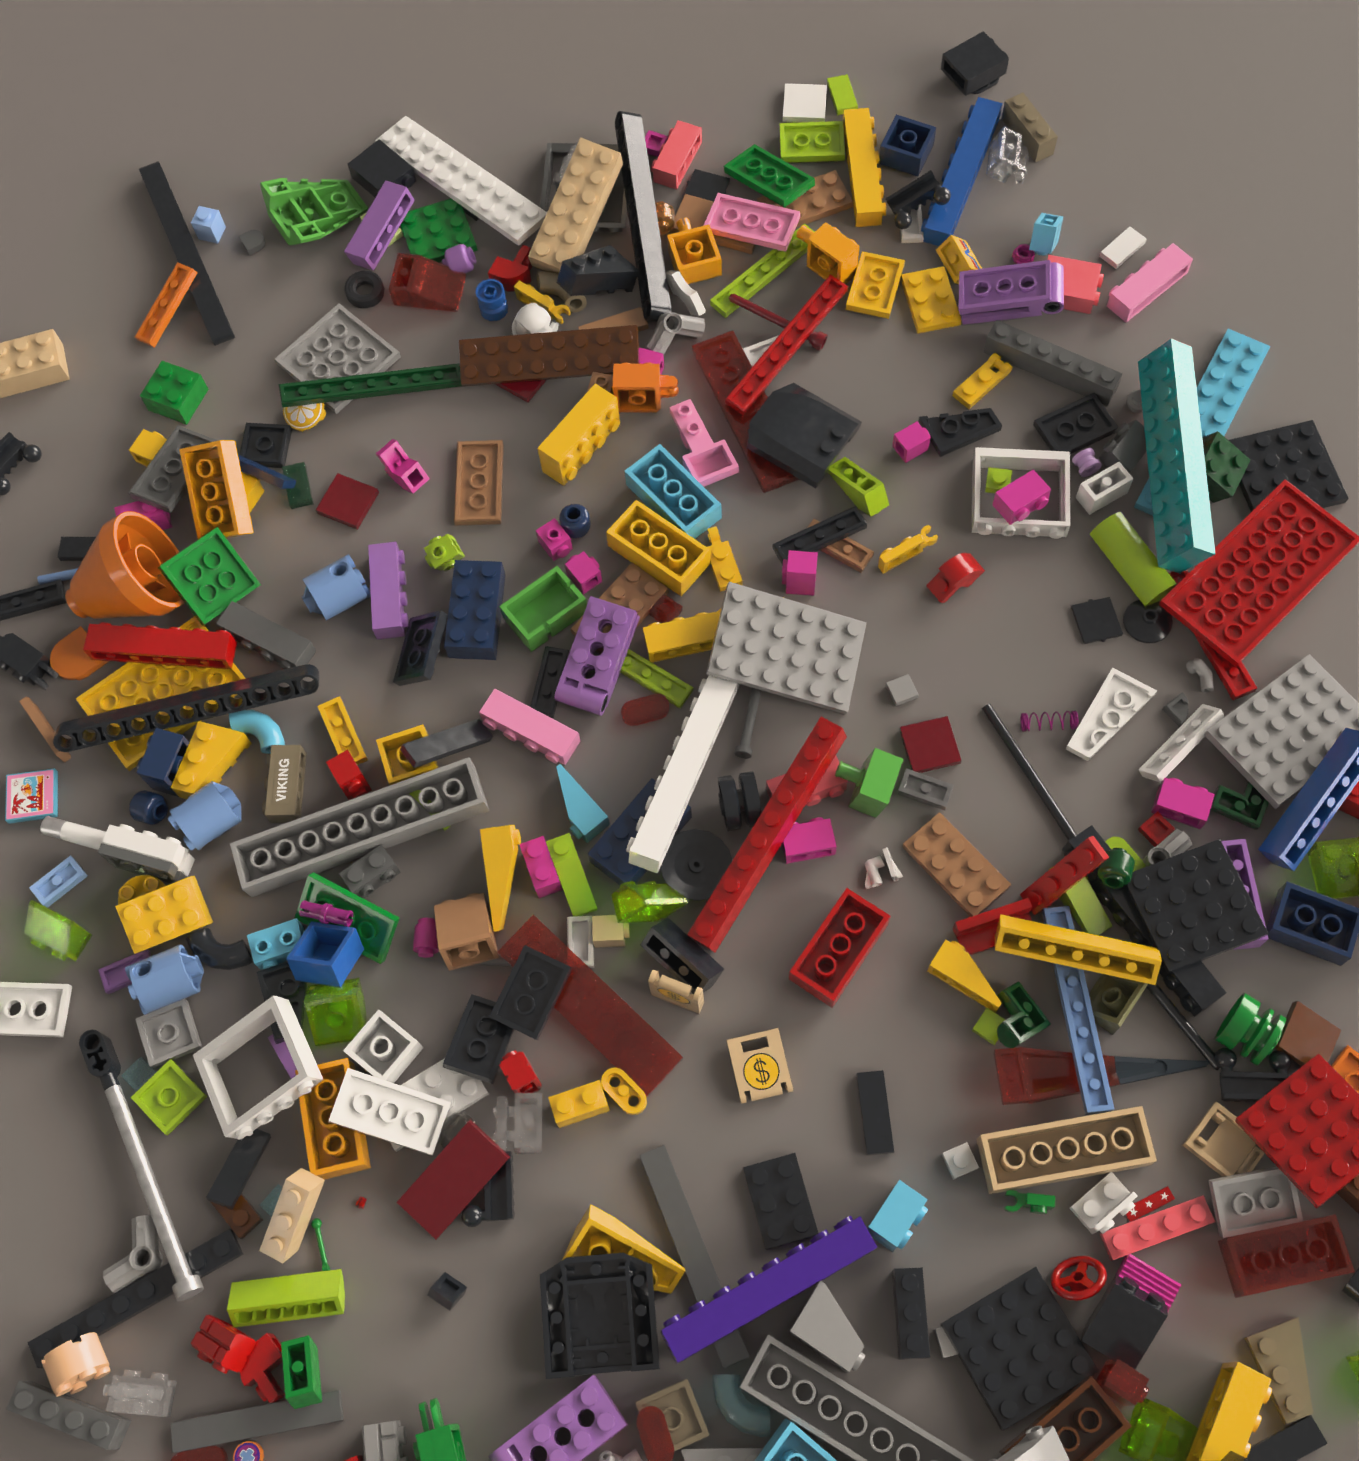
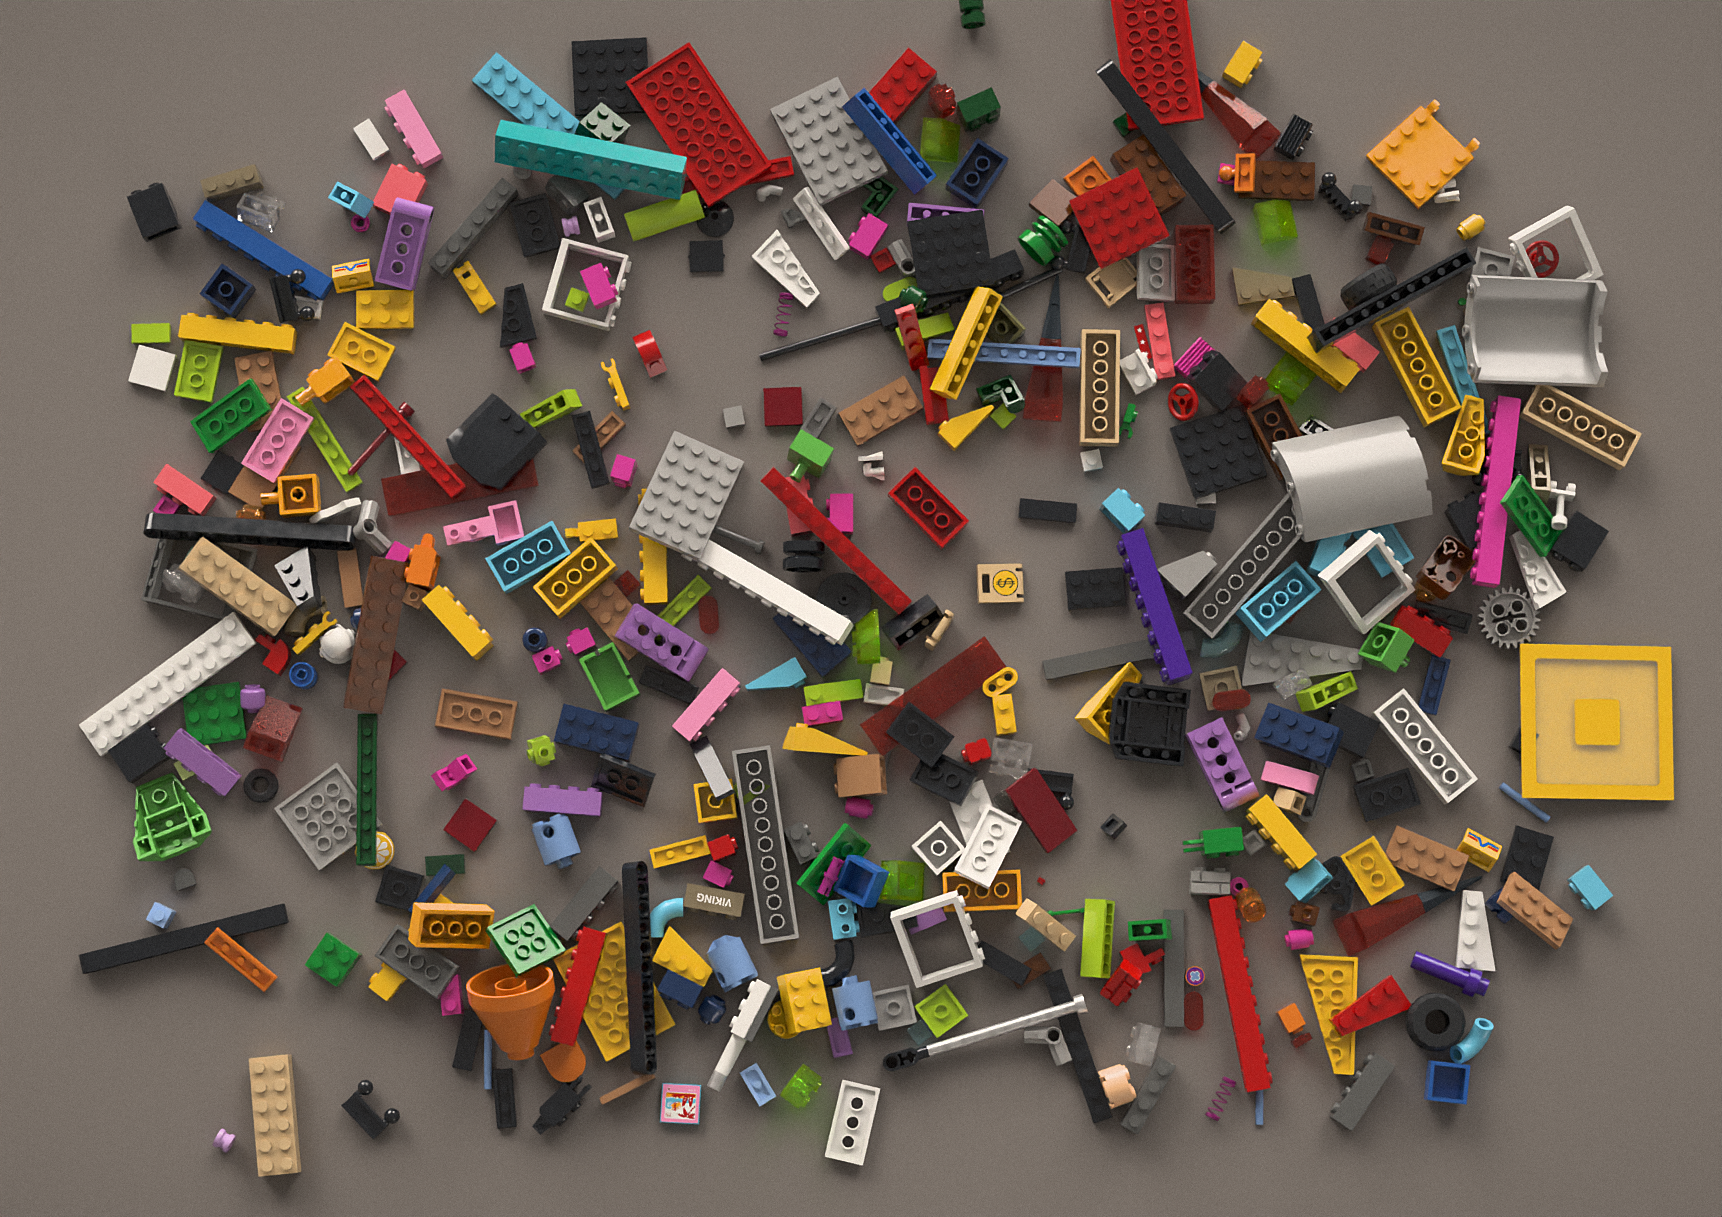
camera: 85 degrees left, 15 degrees up
(317, 782) = (718, 874): none -> dark pink brick

